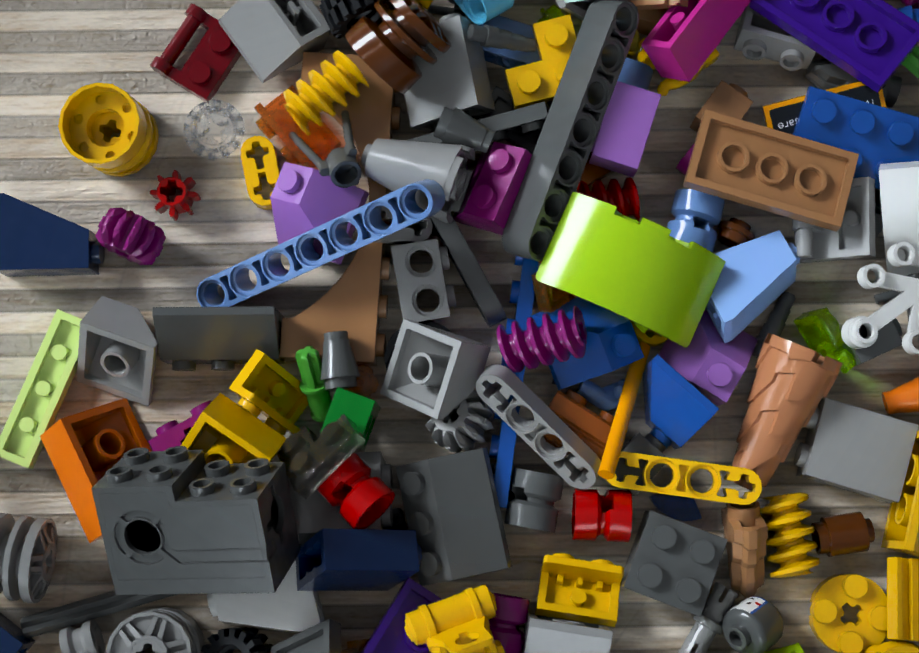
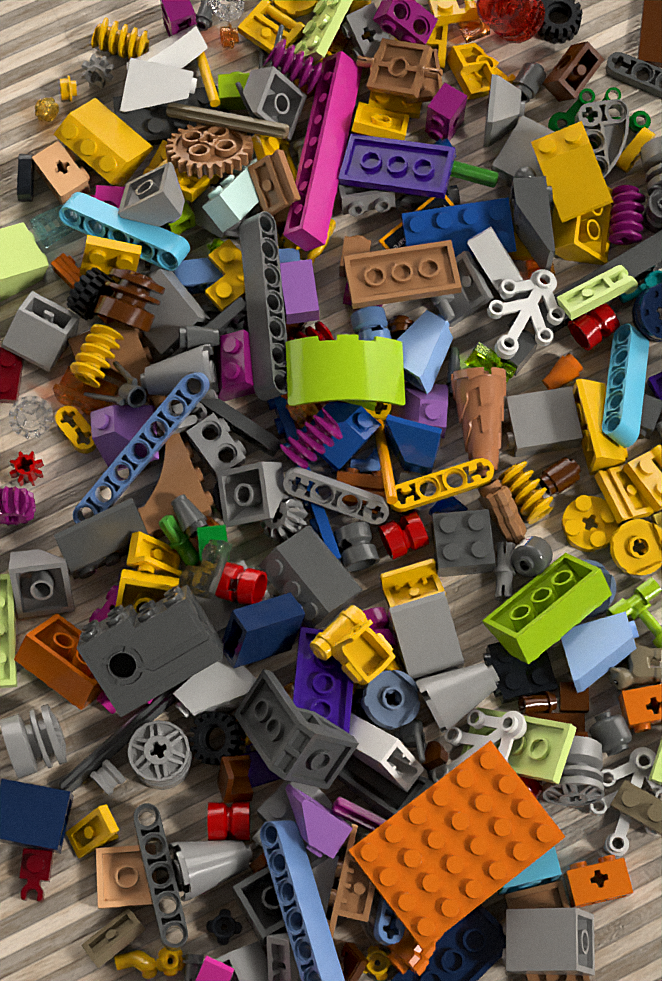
camera: 30 degrees left, 10 degrees down
(502, 39) = (192, 272): dark grey animal -> none

